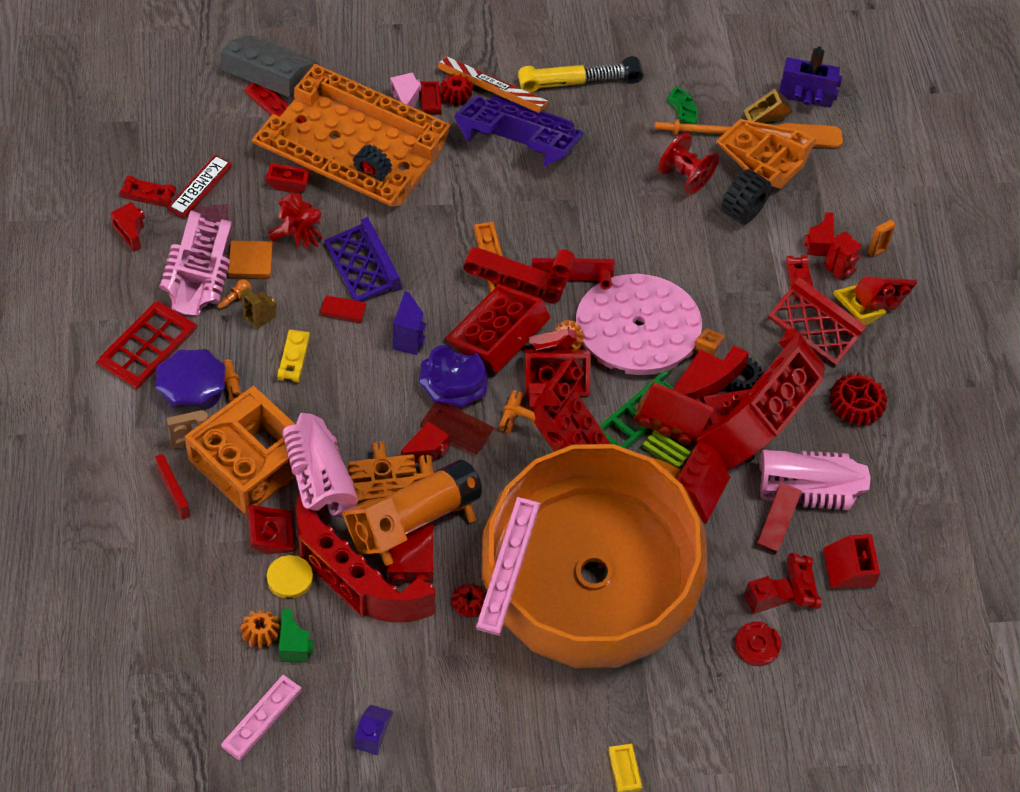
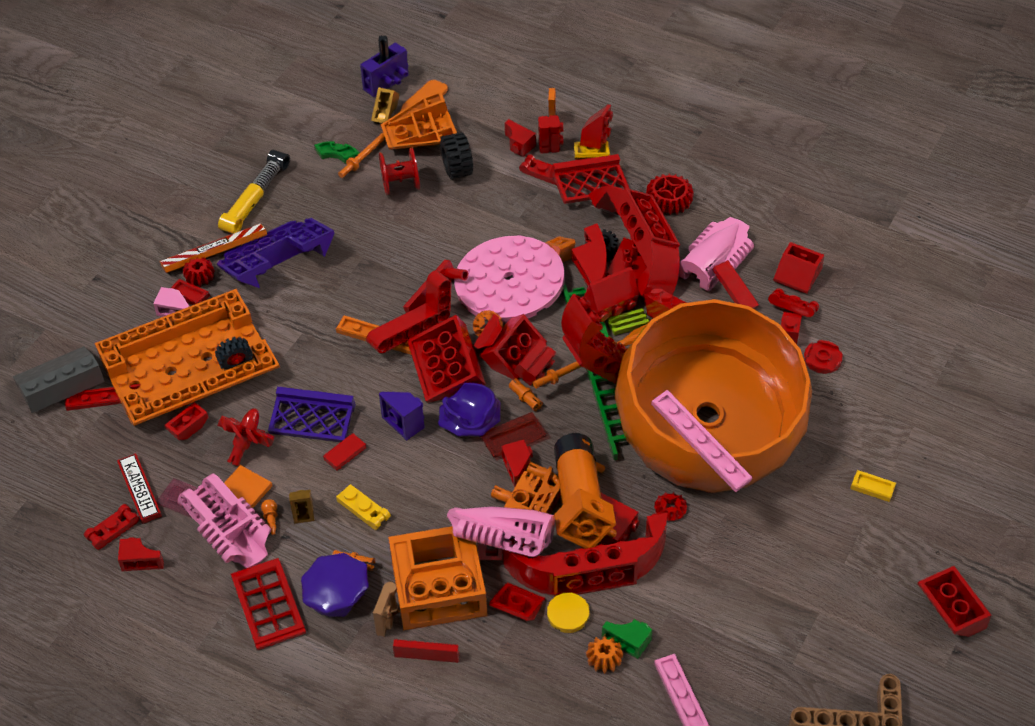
camera: 50 degrees left, 5 degrees down
(372, 729) = (743, 623): dark purple slope -> none

